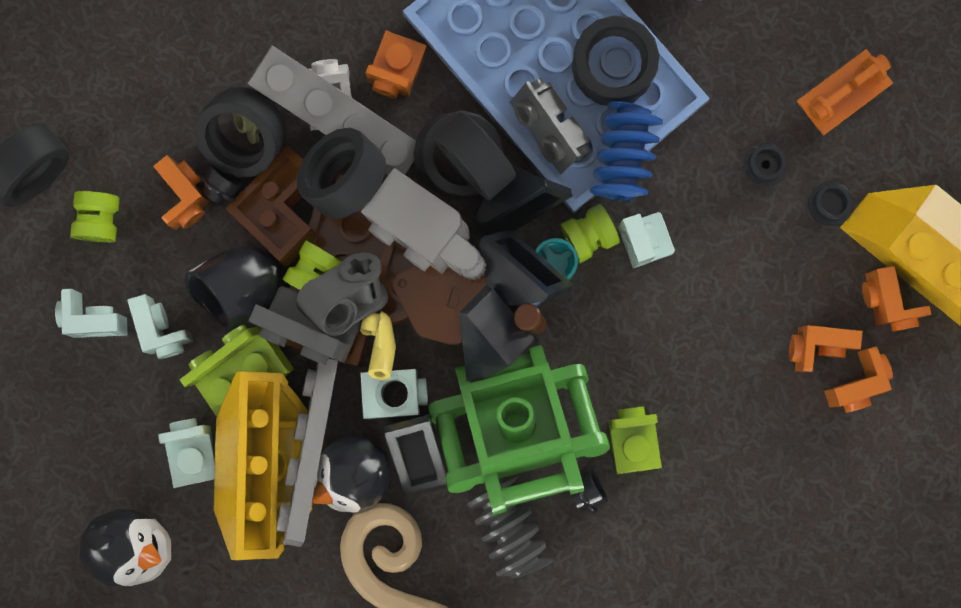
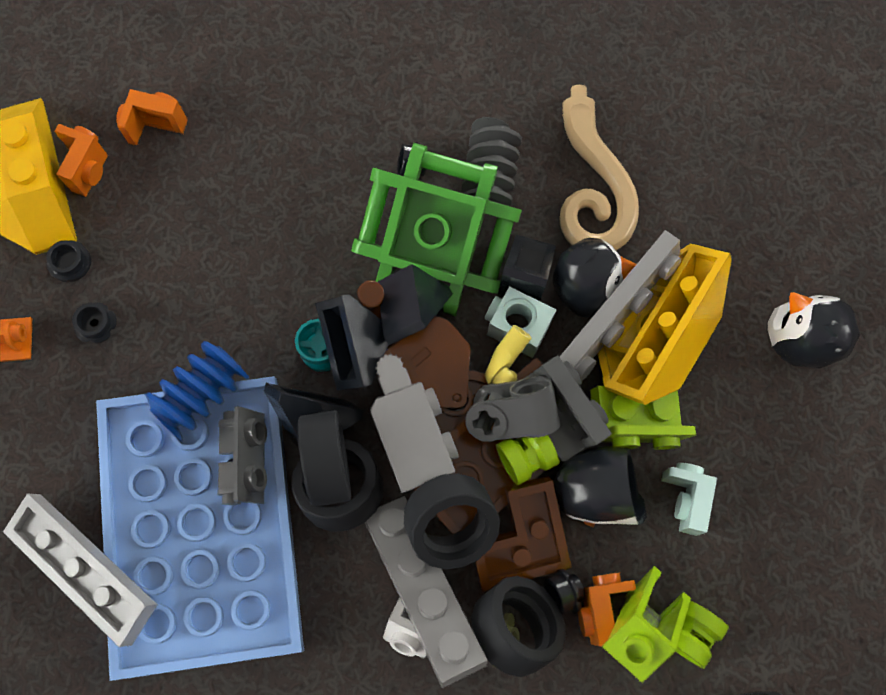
camera: 150 degrees left, 10 degrees down
(97, 322) = (746, 535): light aqua bracket -> none
(135, 188) = (641, 636): none -> lime window
(189, 452) = (716, 378): light aqua bracket -> none
(395, 65) = (340, 606): orange bracket -> none
(590, 233) = (273, 352): lime wheel -> none
(619, 27) = (123, 452): black tyre -> none
(634, 441) = (349, 178): lime bracket -> none
(645, 238) = (234, 318): light aqua bracket -> none
(830, 341) = (153, 160): orange bracket -> none

